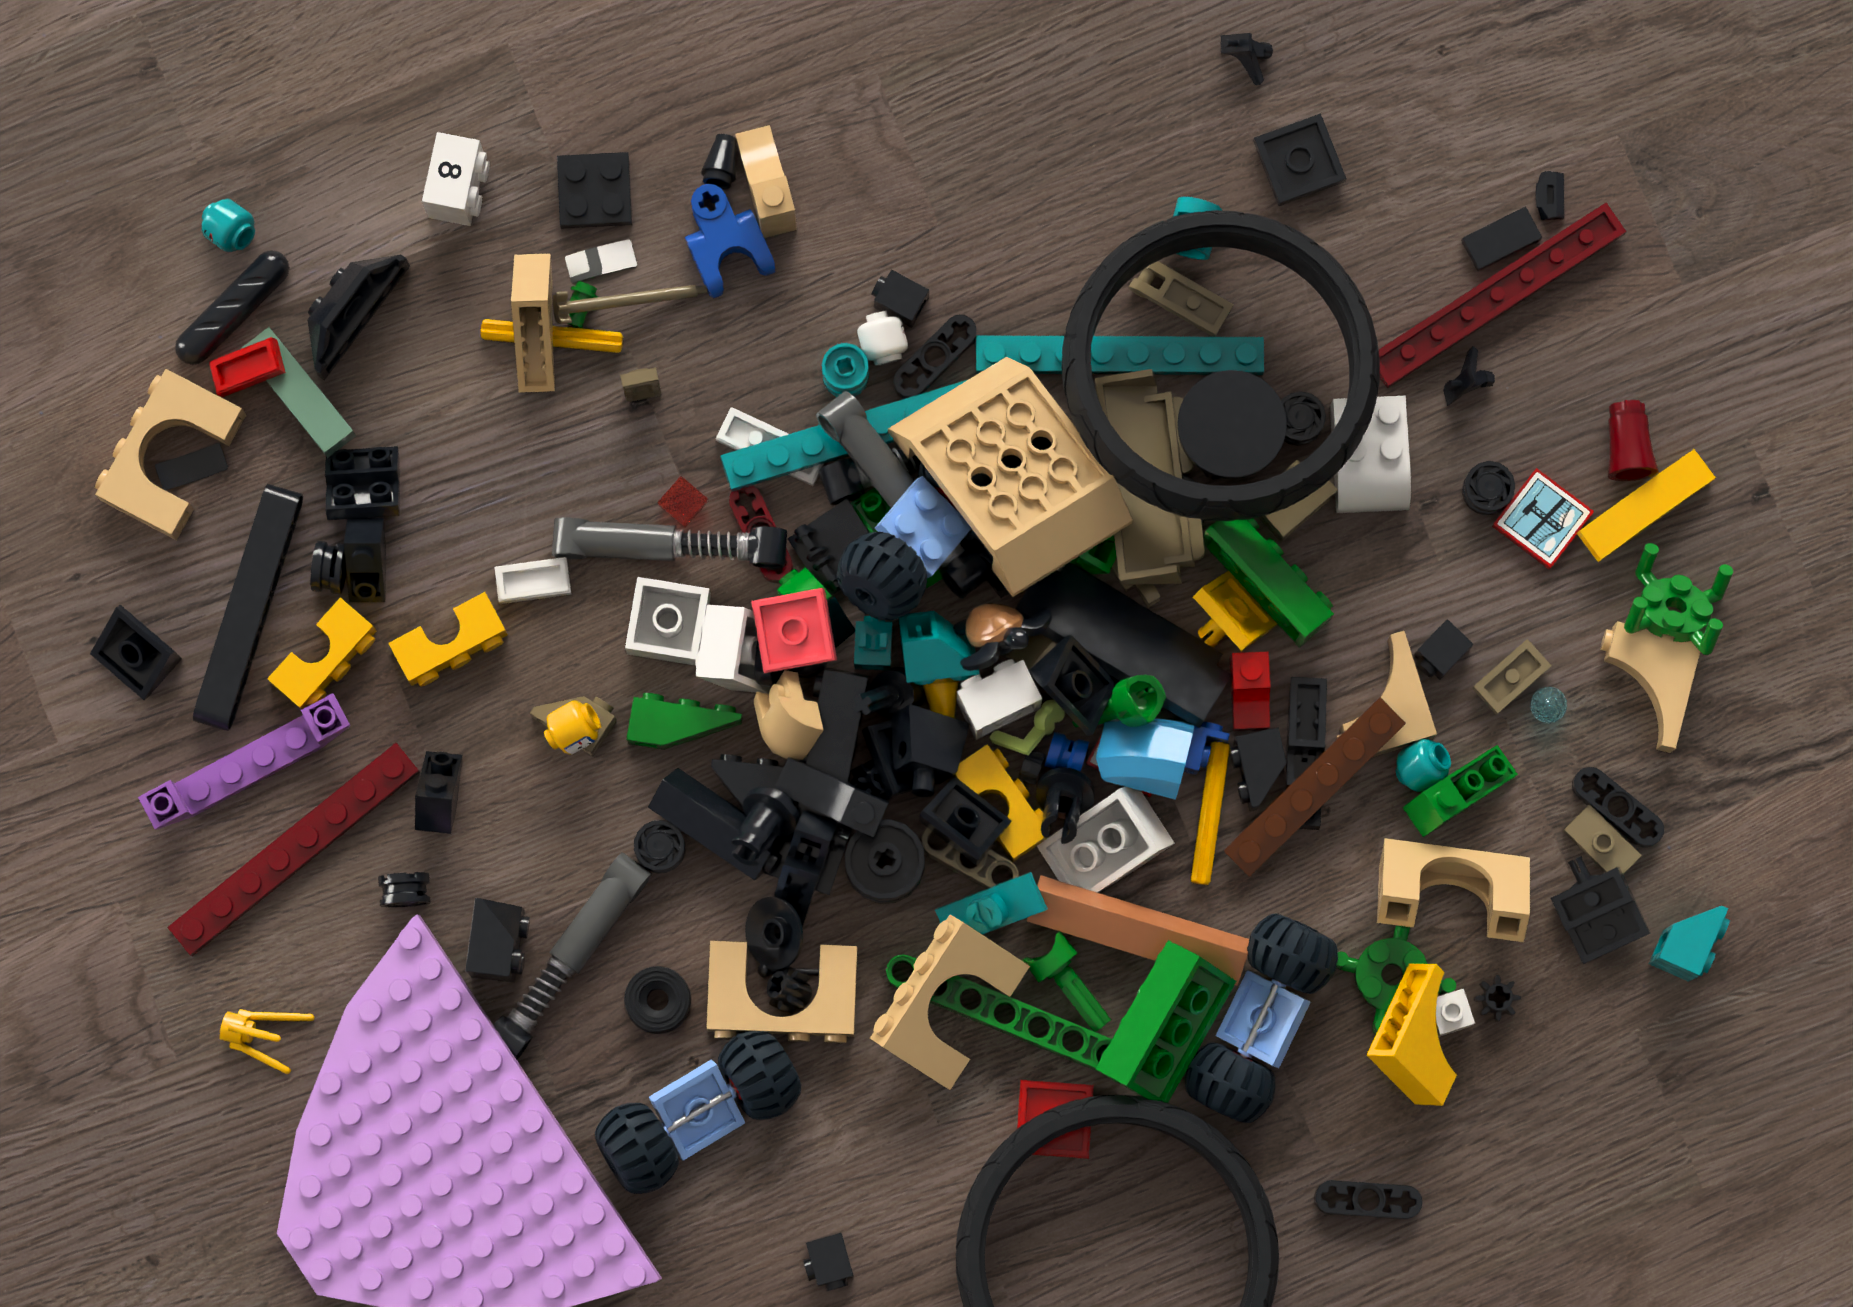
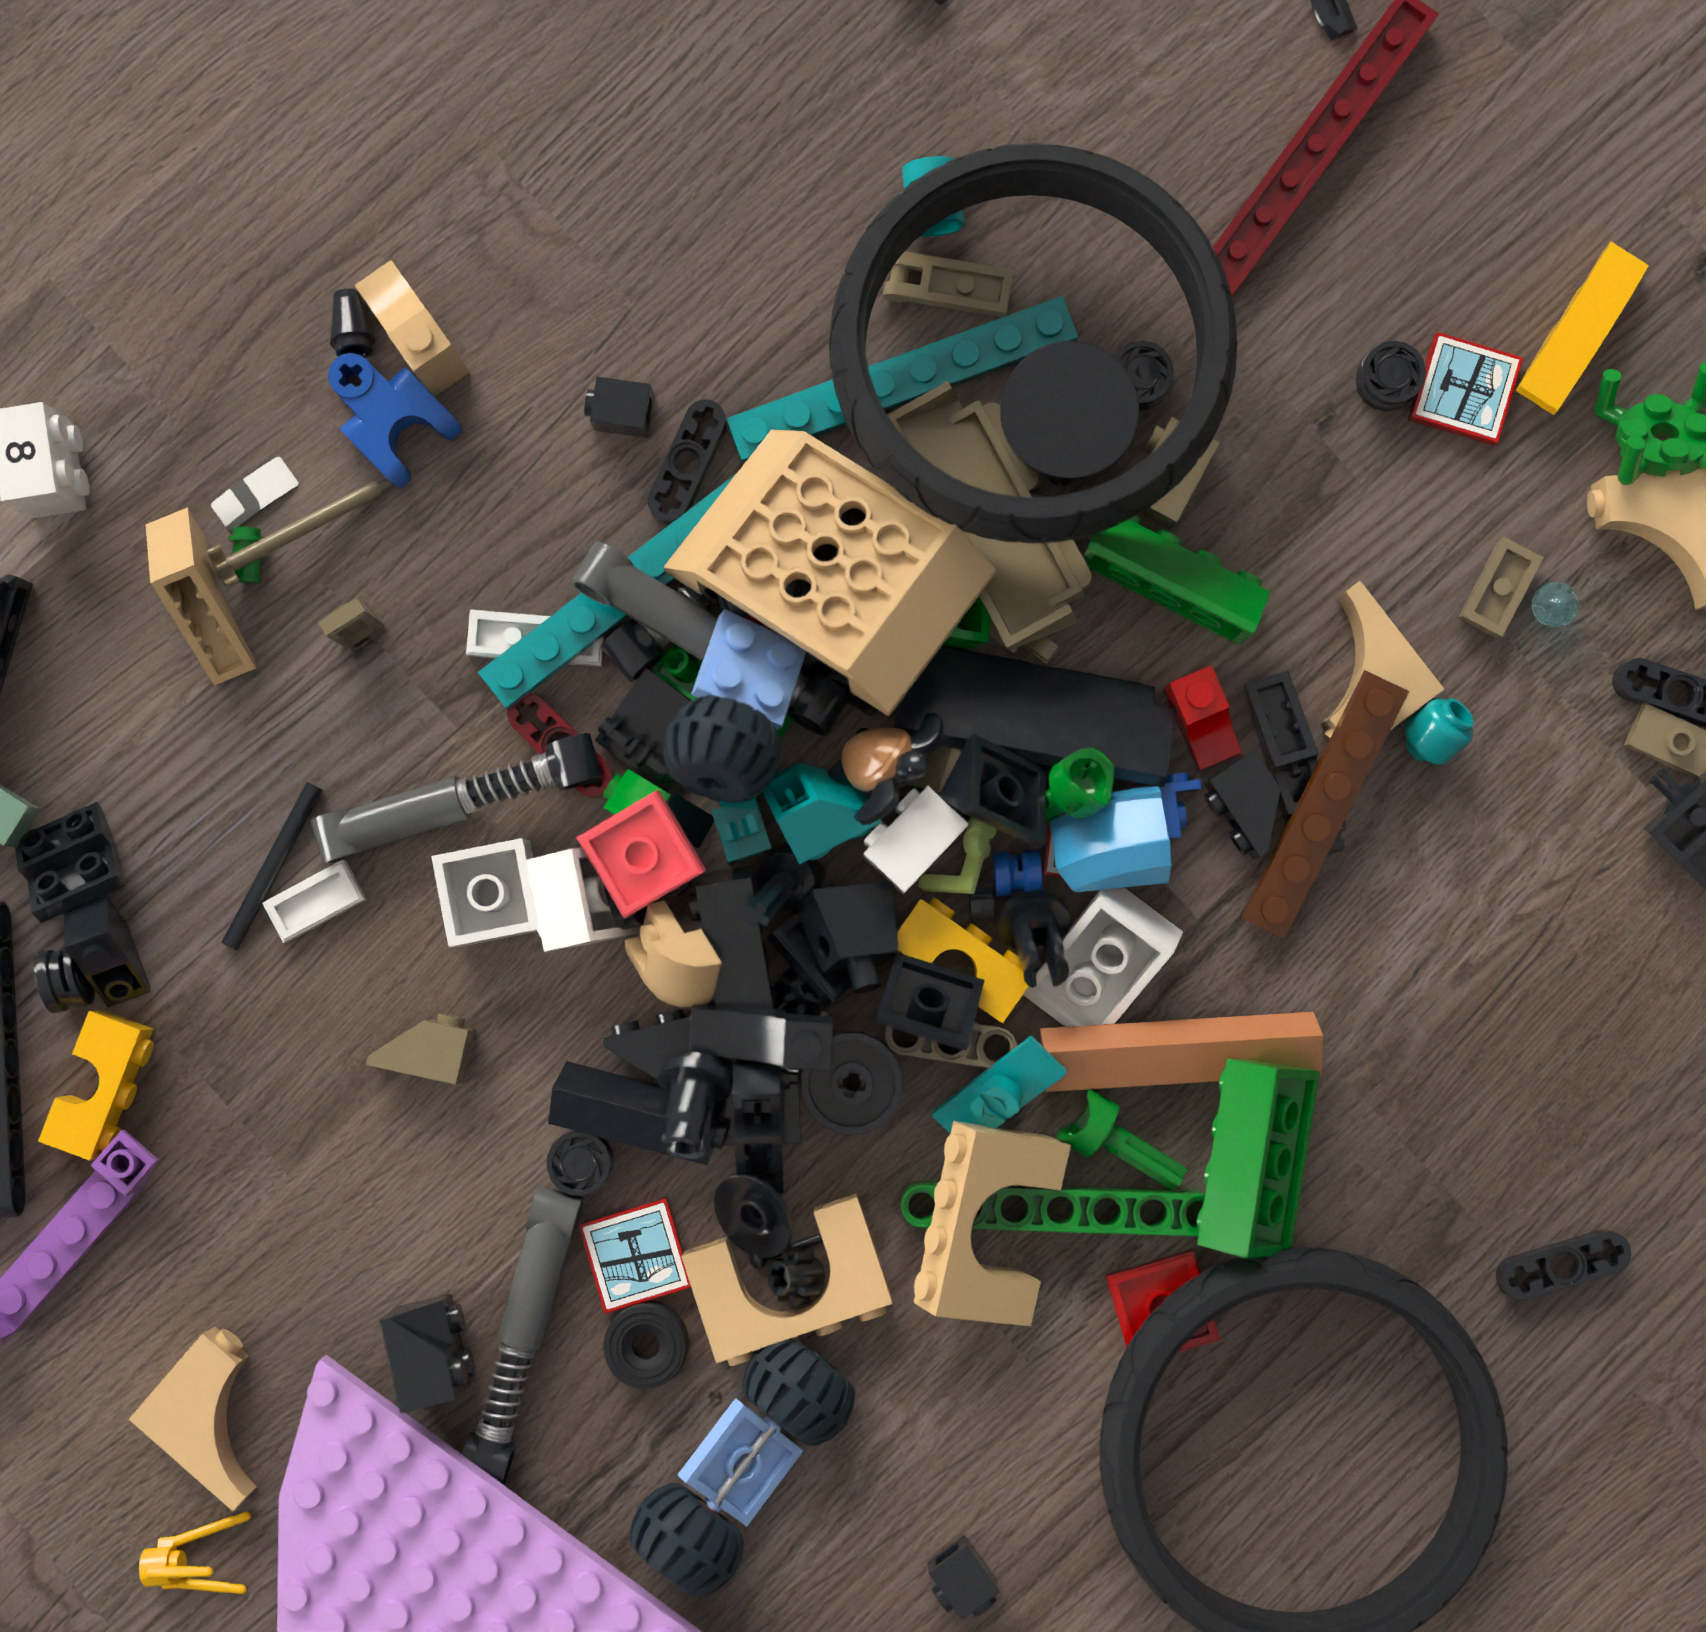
camera: 15 degrees left, 5 degrees up
(293, 849) = (151, 1326): dark red plate -> none
(301, 920) = (190, 1415): none -> tan arch
(404, 889) = (297, 1329): black wheel -> none
(424, 659) = (269, 983): yellow arch -> none
(438, 792) = (294, 1196): black slope -> none
(511, 542) = (272, 866): none -> black bar
(562, 336) = (241, 600): yellow axle -> none
(572, 727) = (421, 1066): yellow head -> none
(594, 190) = (214, 413): black plate -> none
(671, 724) = (534, 1015): green slope -> none
(674, 931) = (635, 1255): none -> tile
(682, 502) = (455, 743): clear red plate -> none
(845, 369) = (587, 515): teal wheel -> none
(882, 338) = (617, 462): white head -> none
(942, 696) = (847, 863): yellow cone -> none
(1210, 813) = (1210, 881): yellow axle -> none
(1232, 613) = (1150, 635): yellow tile -> none
(1262, 1018) = (1365, 1103): black plate -> none
(1299, 159) = (1026, 71): black plate -> none
(1371, 963) = (1518, 985): green plate -> none
(1379, 469) = (1264, 398): white brick -> none
(1408, 1039) = (1548, 1062): yellow arch -> none
(1442, 650) = (1410, 586): black brick -> none
(1453, 1013) = (1579, 1011): white brick -> none
(1459, 791) = (1497, 739): green slope -> none
(1468, 378) = (1319, 256): black piece -> none
(1490, 1006) = (1635, 981): black gear -> none
(1495, 878) = (1576, 832): tan arch -> none
(1501, 238) = (1294, 78): black tile -> none
(1630, 442) = (1536, 260): dark red plant -> none

